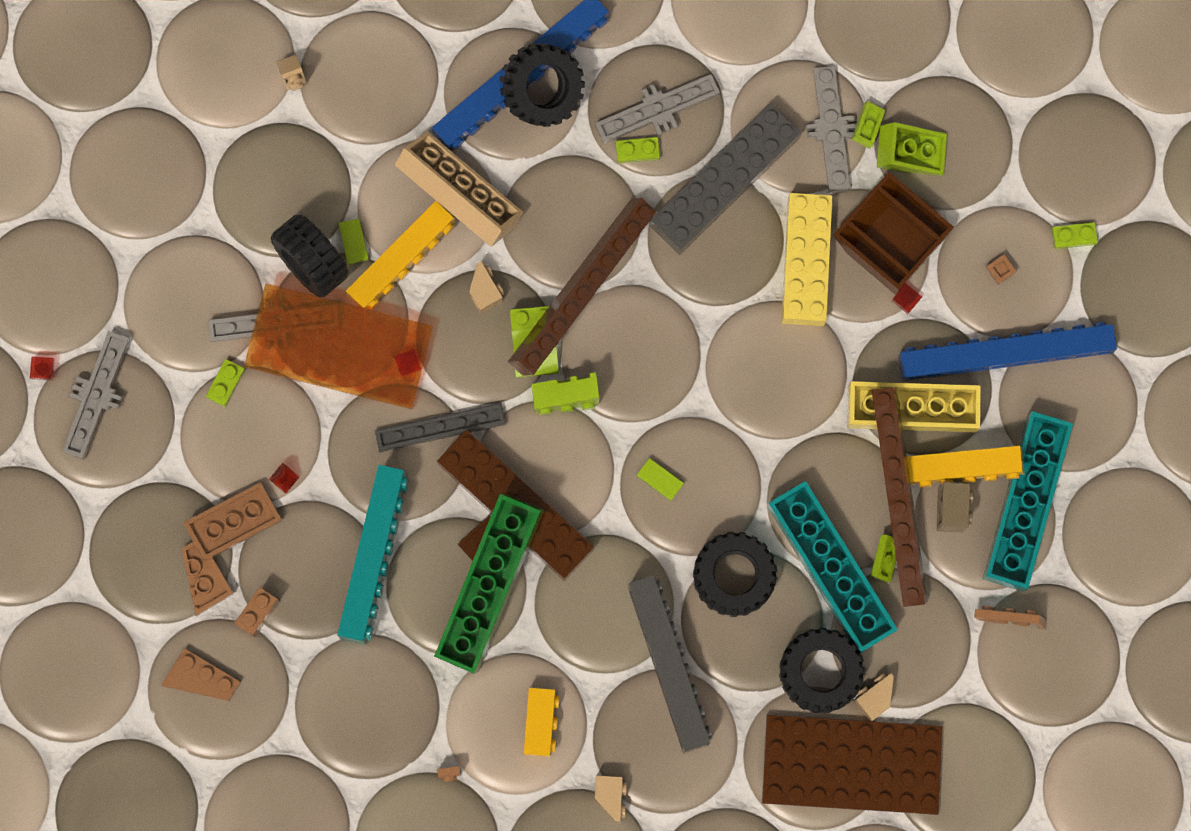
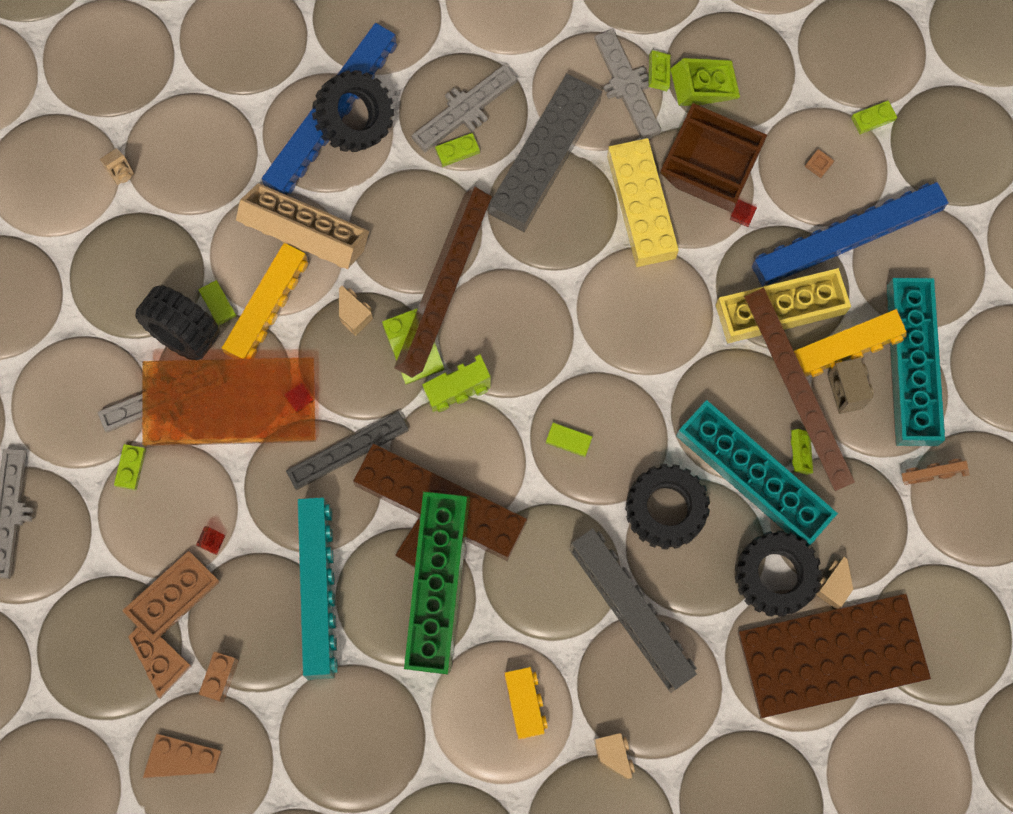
camera: 15 degrees left, 5 degrees down
(449, 774) = (451, 780): medium nougat plate -> none

